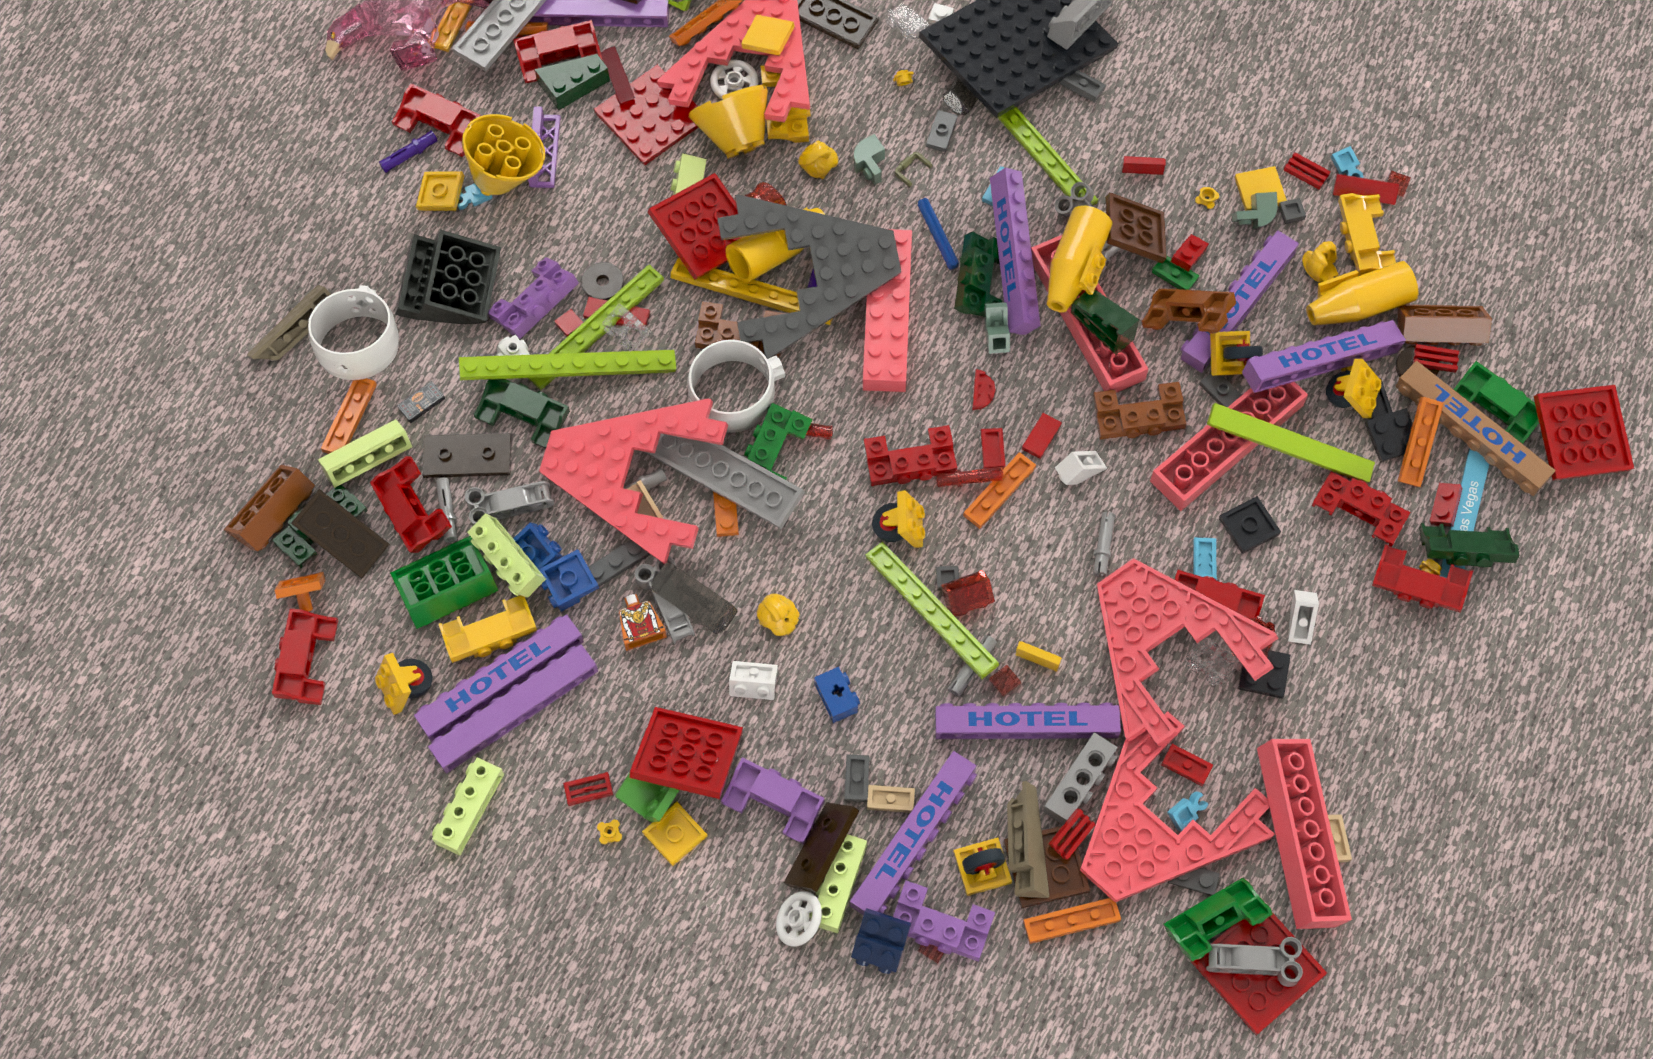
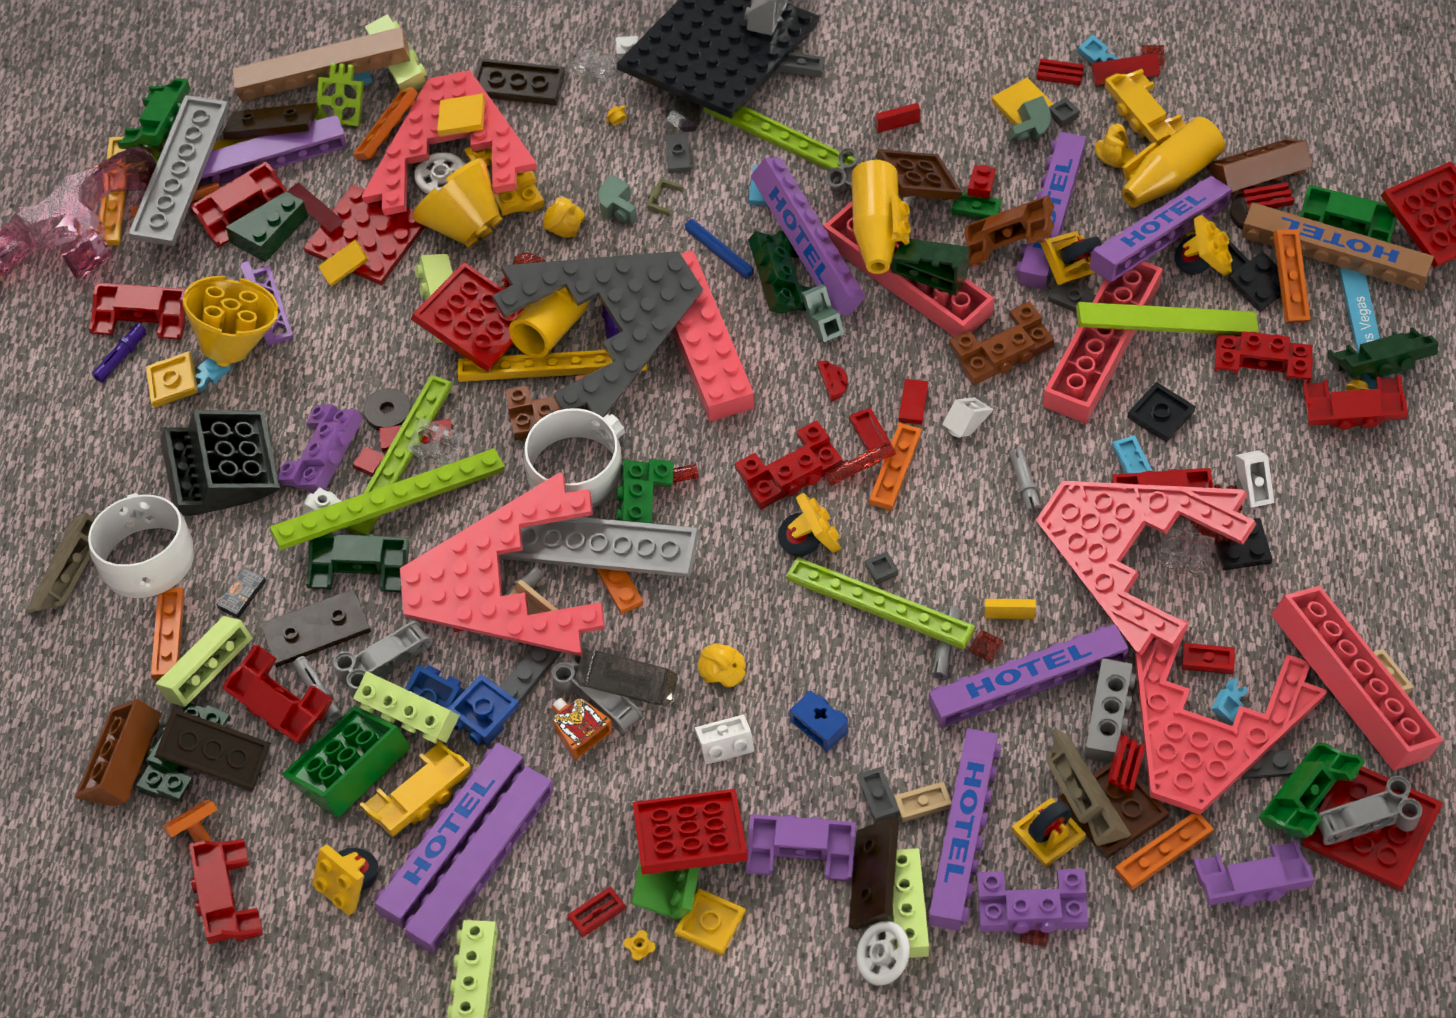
camera: 20 degrees left, 10 degrees down
(619, 135) = (343, 263): none -> yellow tile
(880, 941) = (979, 942): dark blue plate -> none
(968, 593) = (911, 573): clear red brick -> none
(1133, 977) = (1255, 879): none -> medium lavender bracket
(1207, 192) = (974, 121): yellow plate -> none
(1446, 504) = (1342, 327): plate -> none

